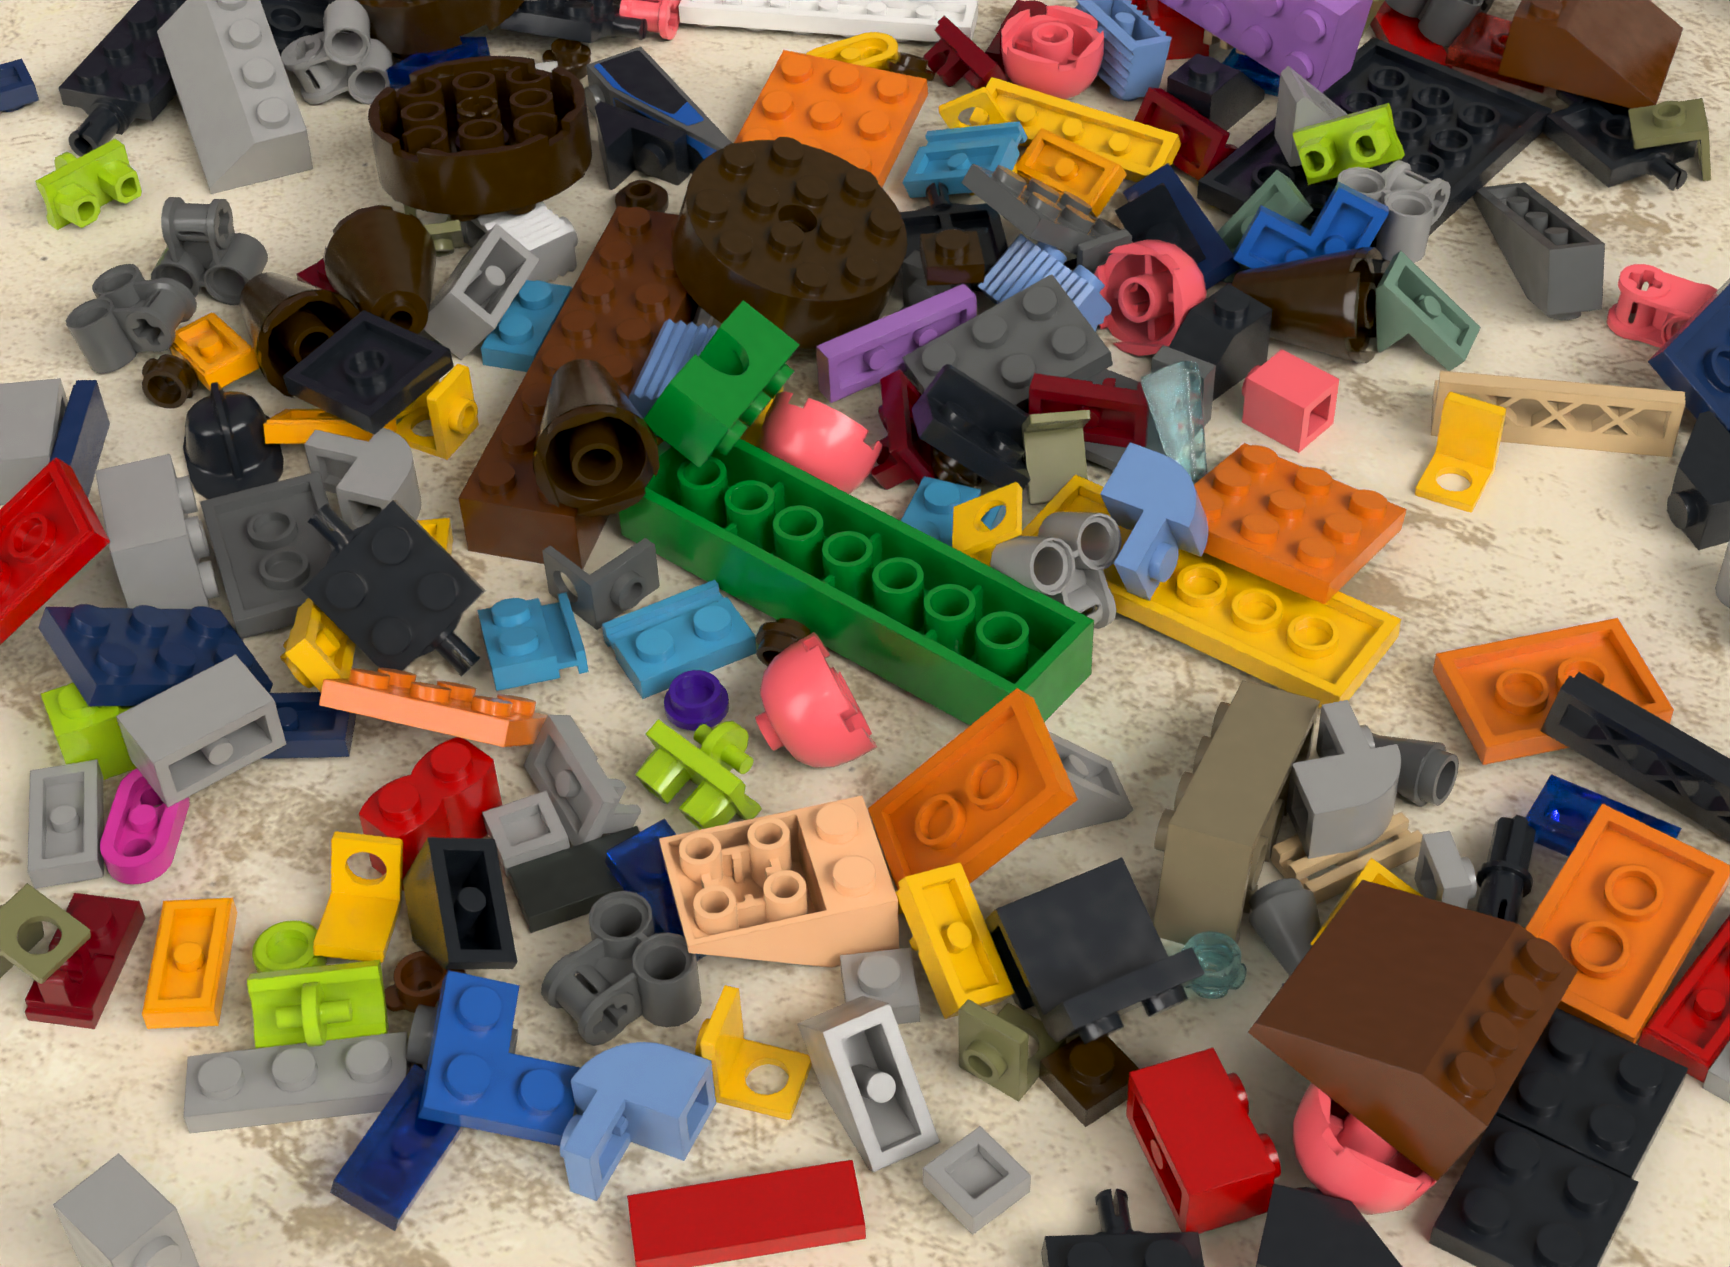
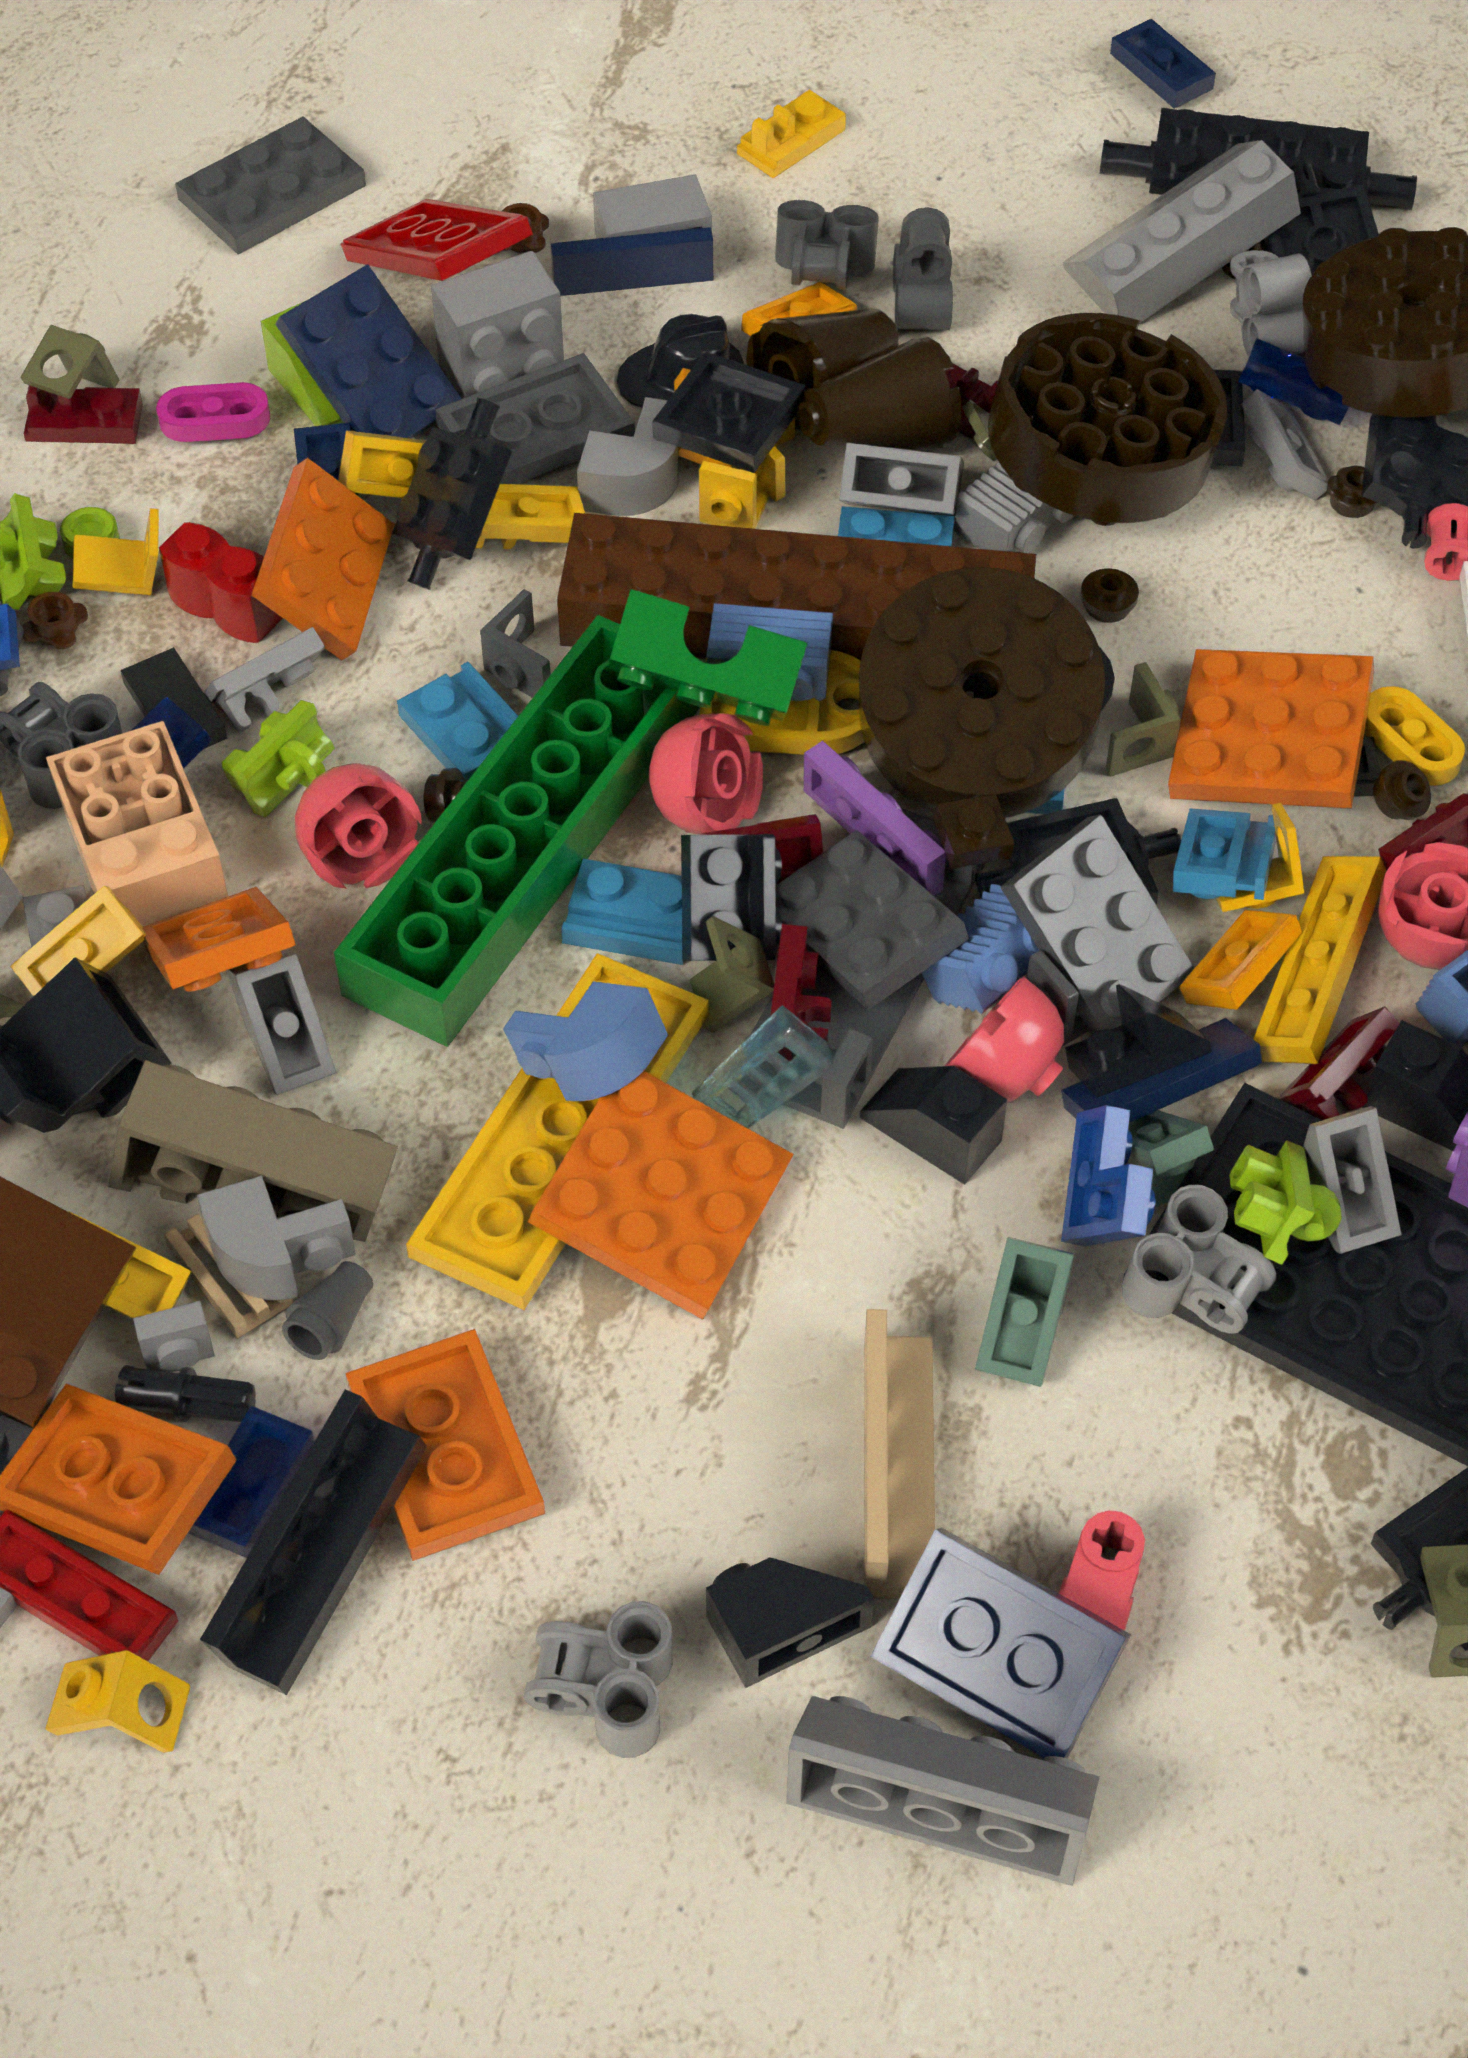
camera: 80 degrees right, 10 degrees up
(65, 824) = (213, 360): light grey plate -> none
(86, 183) = (1028, 169): lime hips -> none
(168, 381) = (756, 292): dark brown plate -> none
(190, 963) = (73, 472): light orange plate -> none
(201, 730) = (279, 406): light grey brick -> none
(460, 904) = (98, 615): black slope -> none
(525, 830) = (211, 650): light grey plate -> none
(531, 641) = (432, 612): dark azure plate -> none
(592, 443) = (605, 557): dark brown cone -> none
(639, 144) = (1188, 560): black slope -> none
(642, 87) = (1271, 564): slope -> none
(696, 700) = (381, 744): dark purple plate -> none
(973, 536) = (571, 924): yellow bracket -> none
(1066, 561) = (527, 974): light grey piece -> none
(1221, 954) = (76, 1146): clear light blue plate -> none
(1285, 920) = (127, 1210): dark grey cone -> none
(1289, 400) = (864, 1190): coral brick -> none
(1320, 301) = (1016, 1193): dark brown cone -> none
(1466, 447) = (820, 1362): yellow bracket -> none
(1546, 249) = (1197, 1447): dark grey slope -> none

